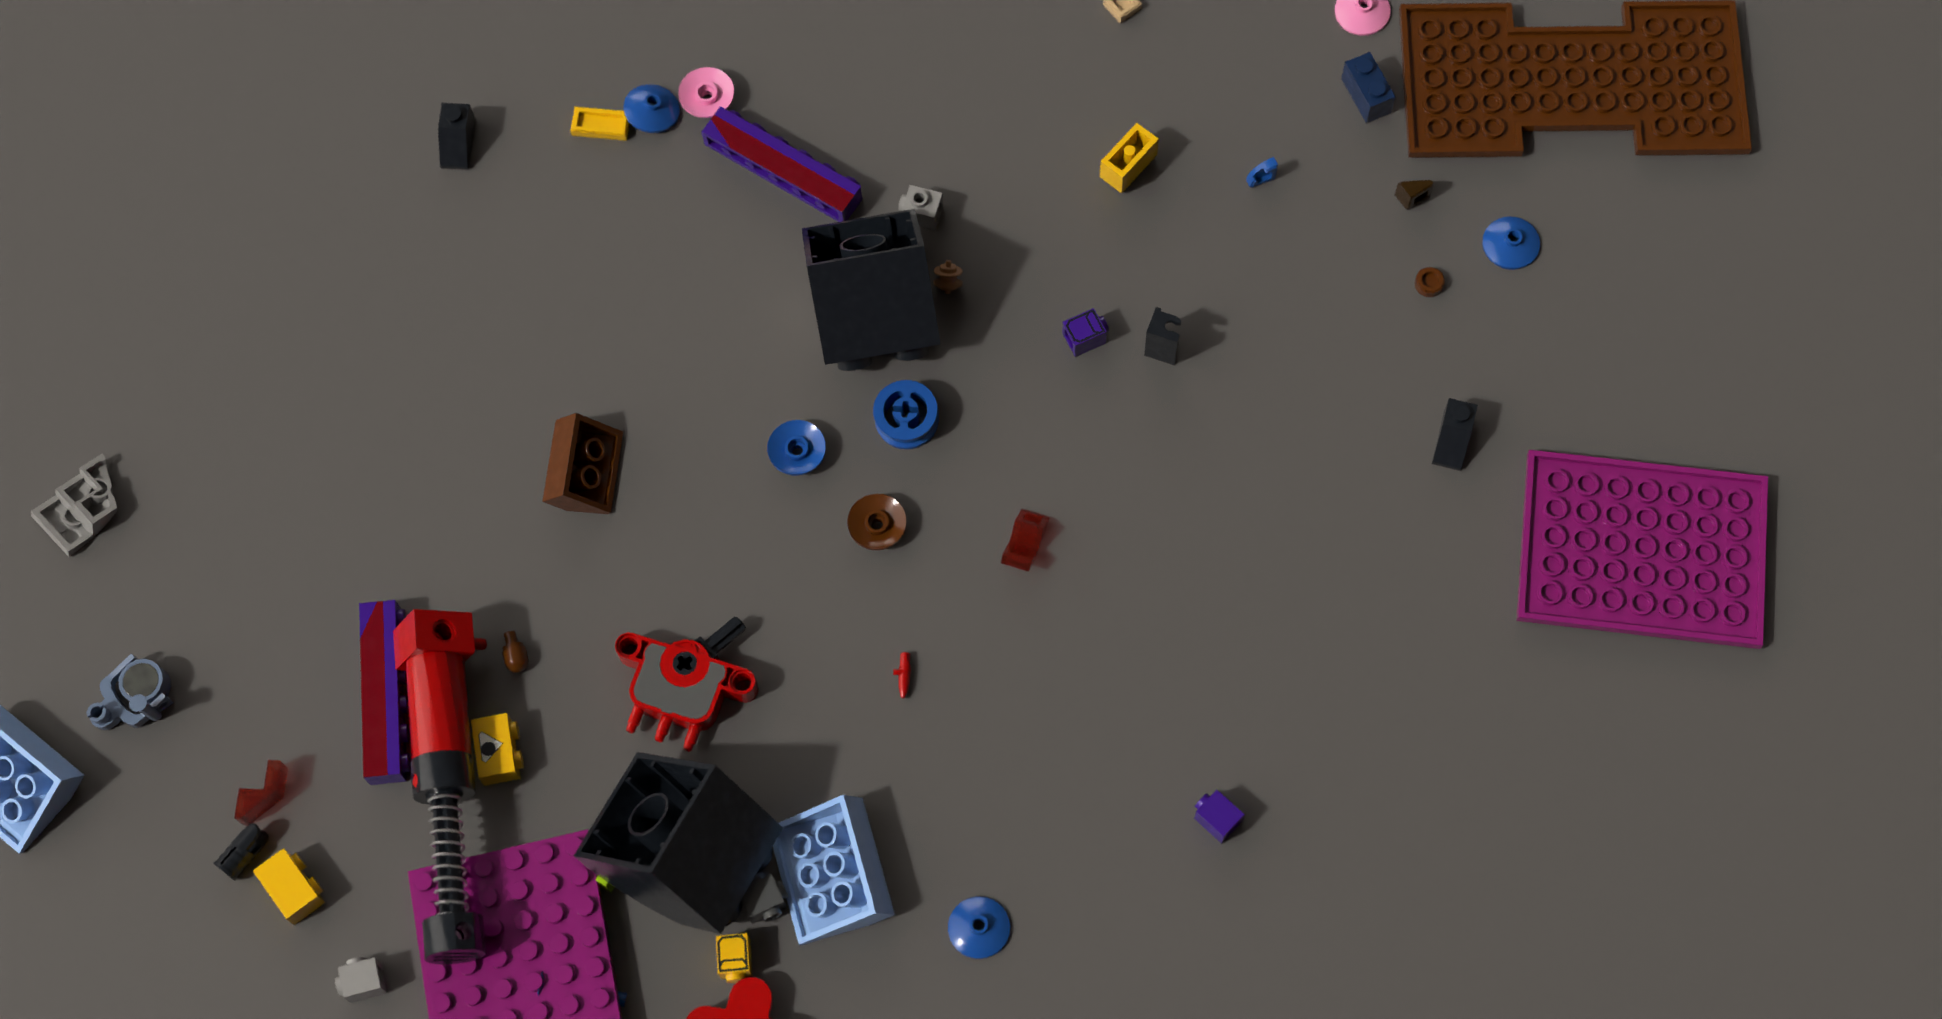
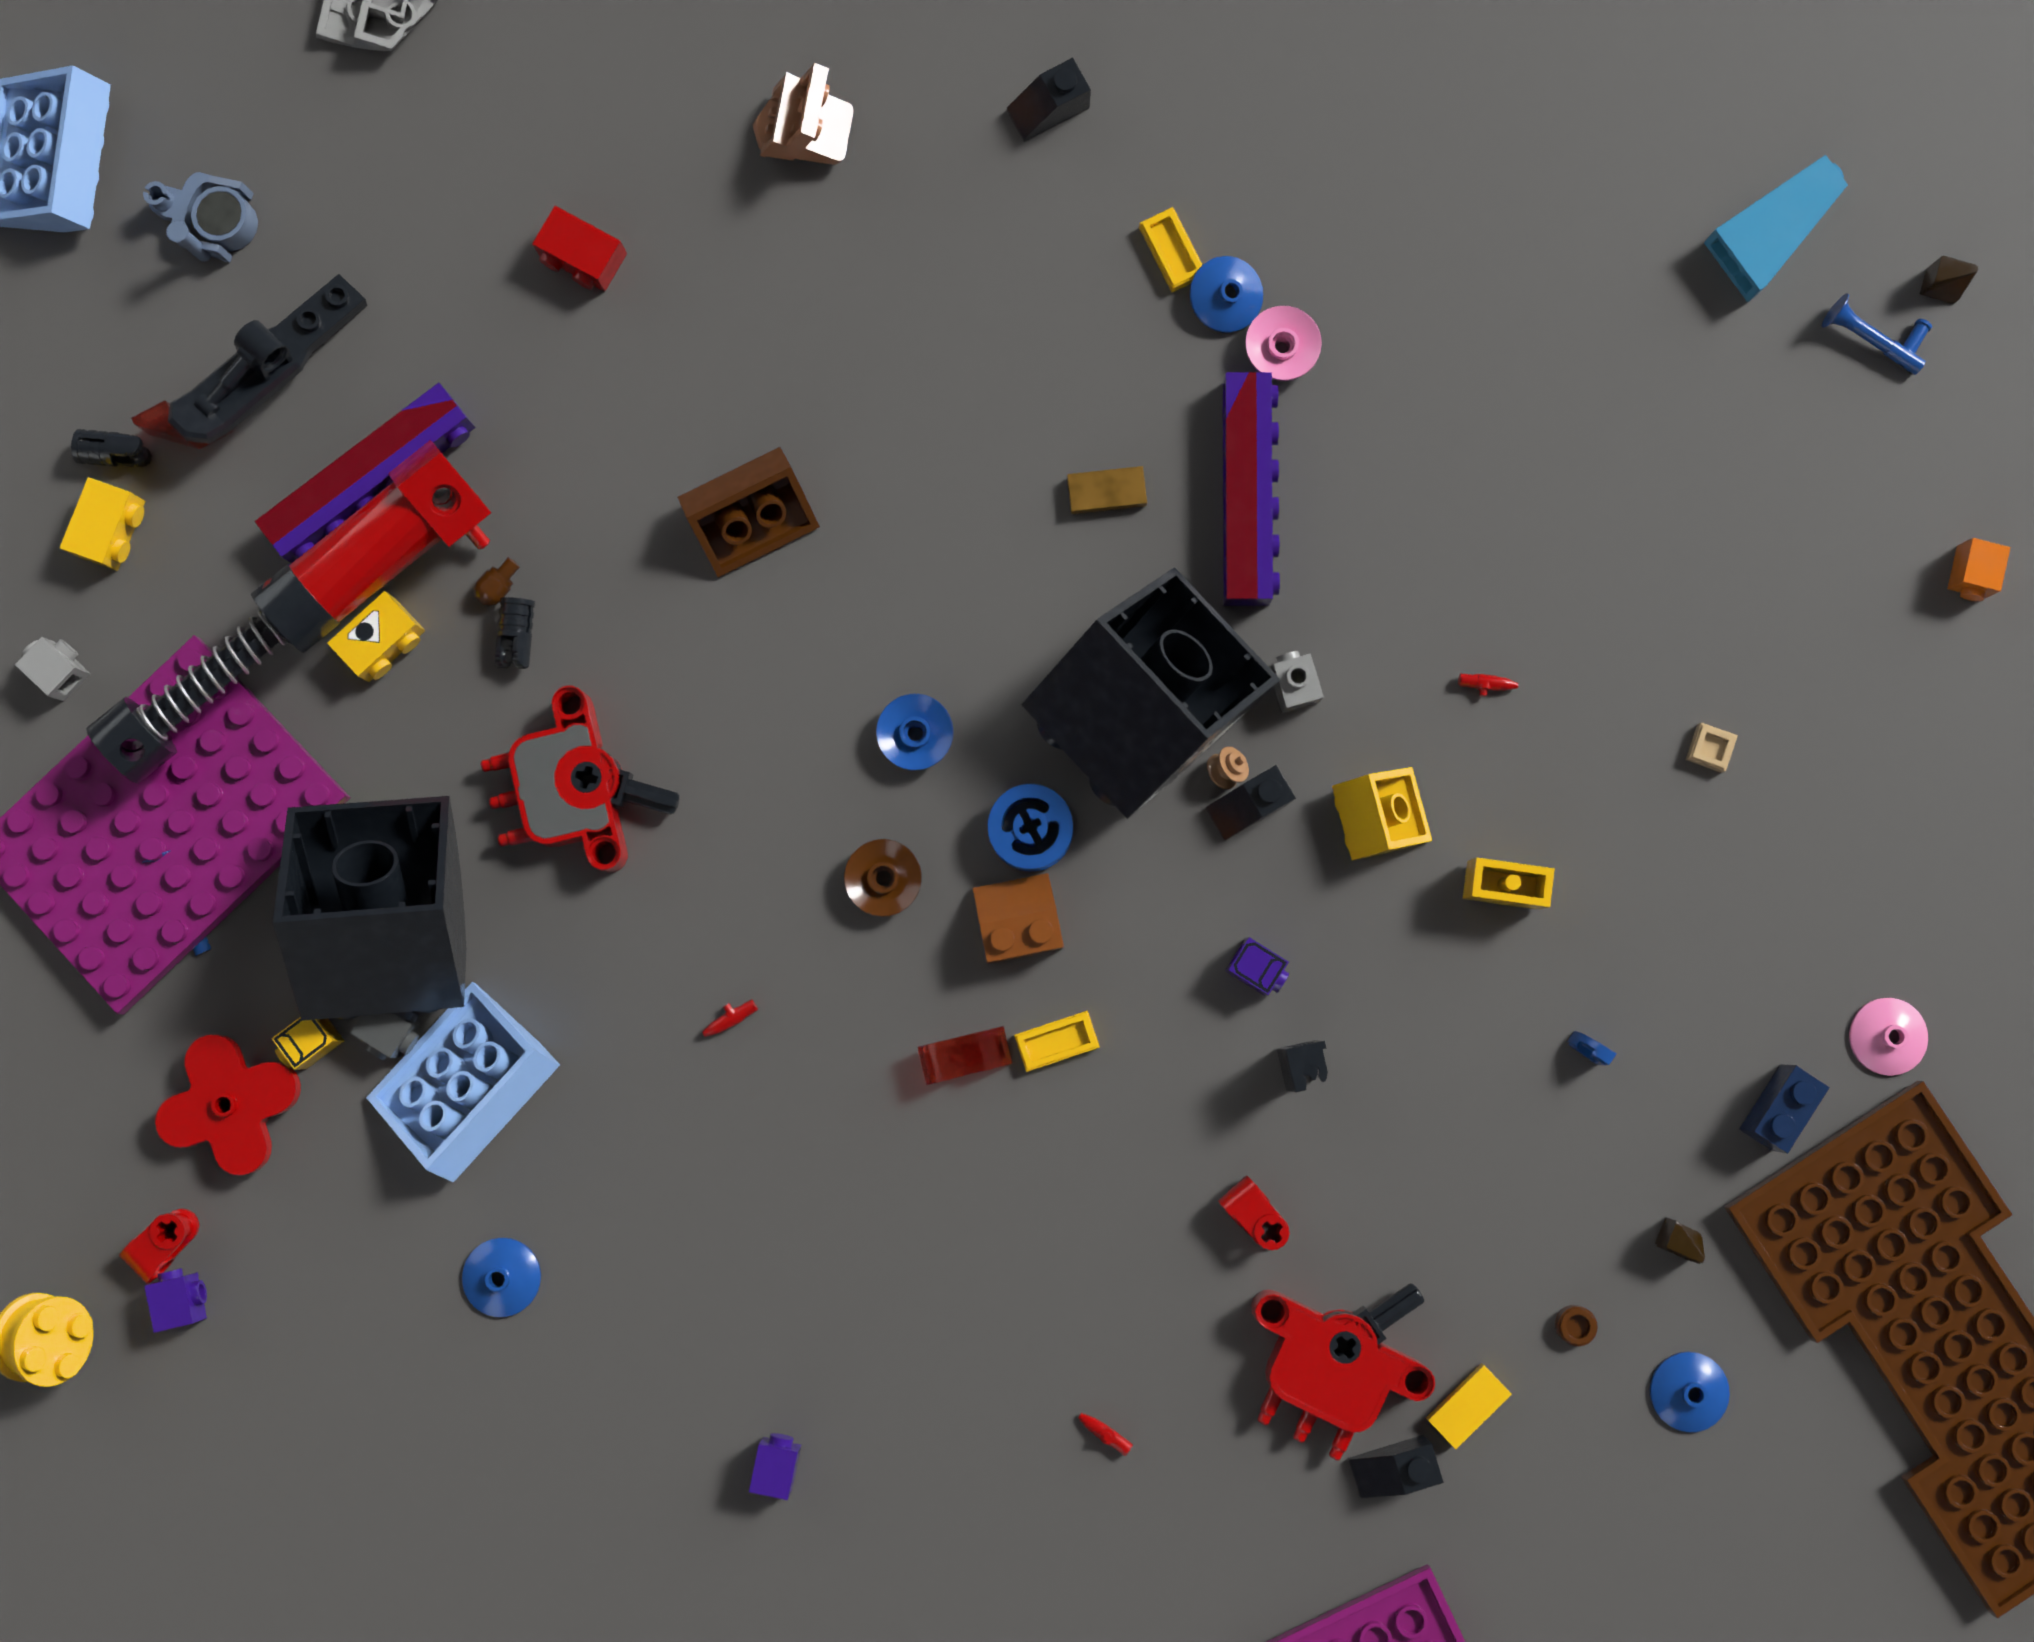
camera: 55 degrees right, 15 degrees up
(262, 710) = (263, 363): none -> black piece
(336, 469) = (579, 249): none -> red brick
(356, 285) = (804, 120): none -> piece
(553, 656) = (514, 632): none -> black hinge
(723, 247) = (1107, 490): none -> pearl gold tile
(960, 456) = (1018, 918): none -> dark orange slope
(979, 276) = (1250, 802): none -> black slope
(997, 103) = (1486, 683): none -> red helmet
(1036, 207) = (1381, 813): none -> yellow slope
(1053, 481) = (1056, 1041): none -> yellow tile
(1238, 424) = (1251, 1209): none -> red piece
(1326, 598) = (1106, 1434): none -> red helmet
(1372, 444) = (1334, 1384): none -> red piece
(1441, 372) = (1468, 1406): none -> yellow tile

